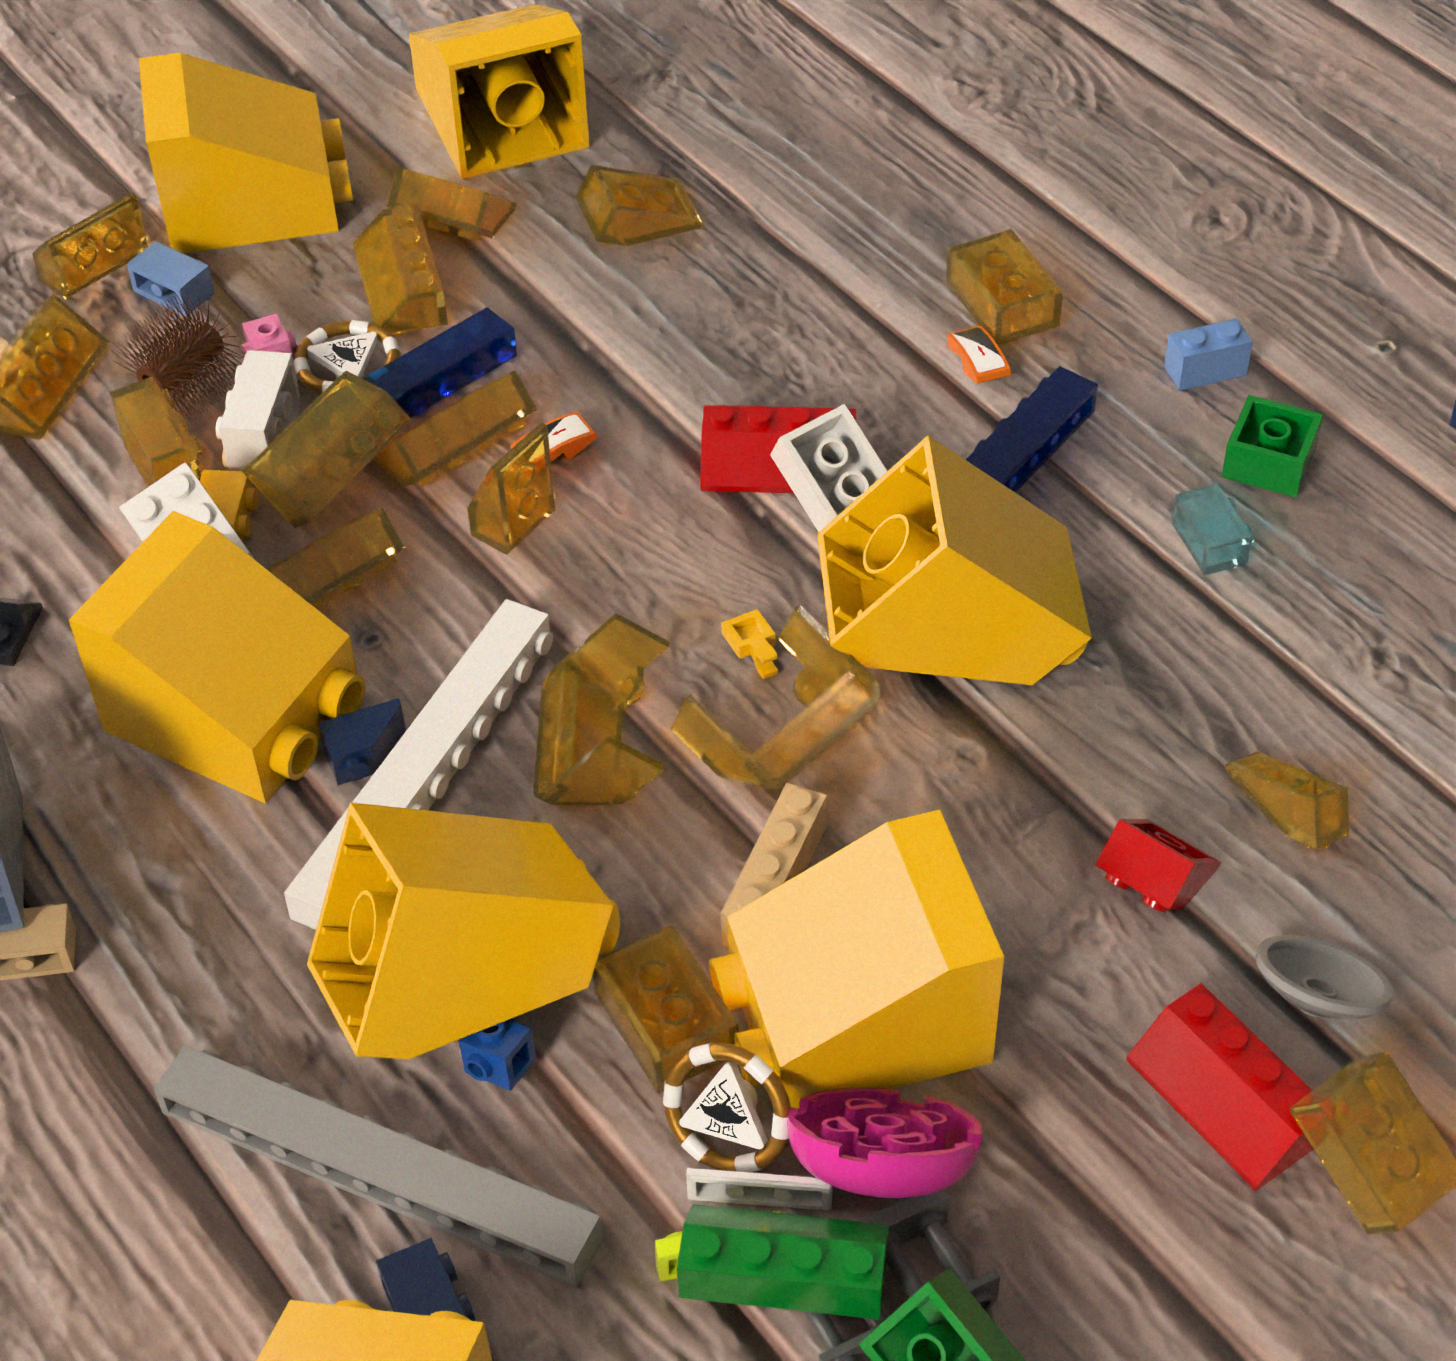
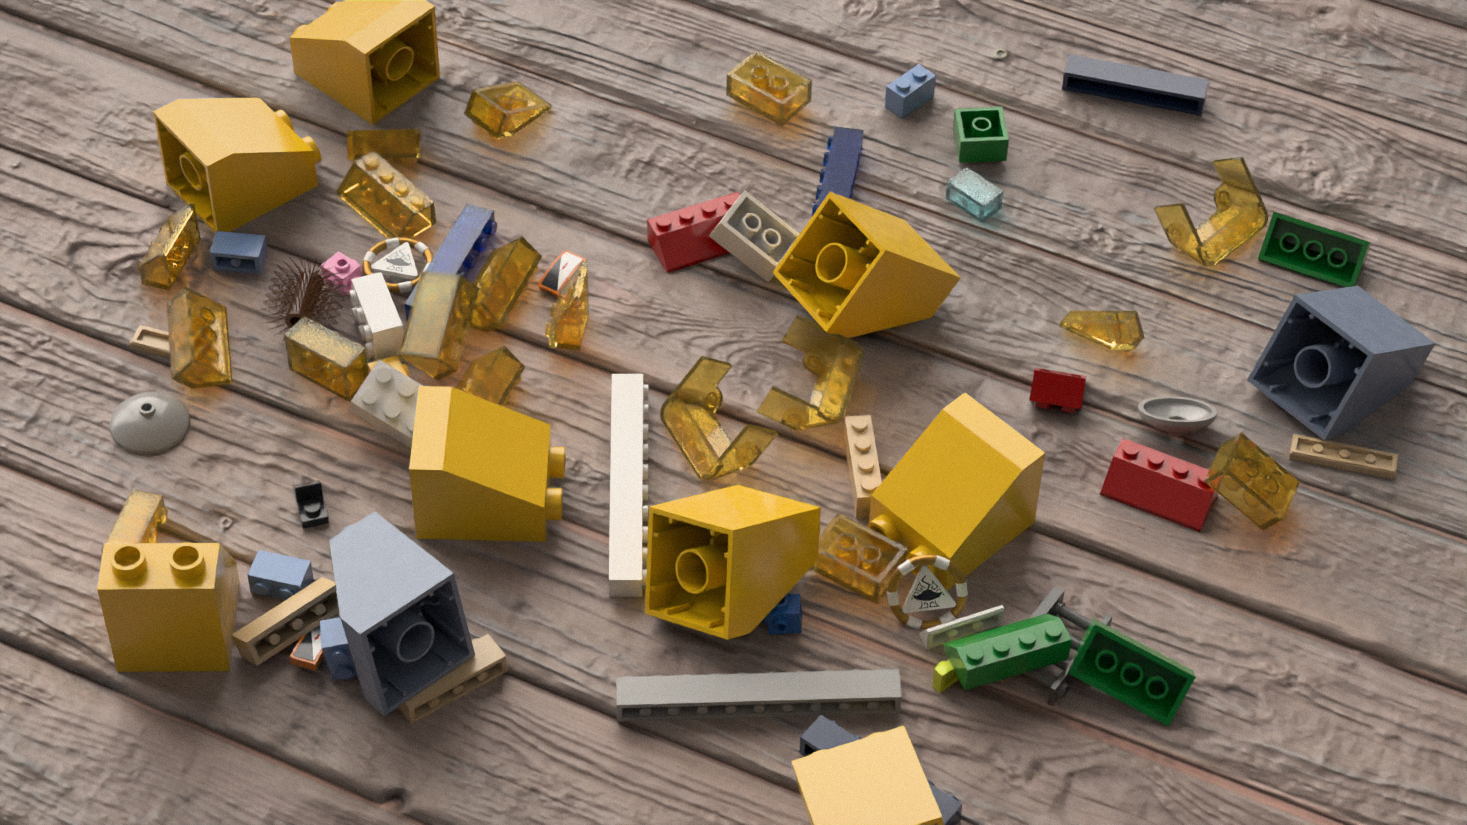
camera: 30 degrees left, 0 degrees up
(361, 740) = (580, 486): dark blue slope -> none
(752, 636) = (760, 346): yellow plate -> none
(883, 1144) = (1019, 577): dark pink brick -> none
(979, 353) = (778, 133): slope -> none

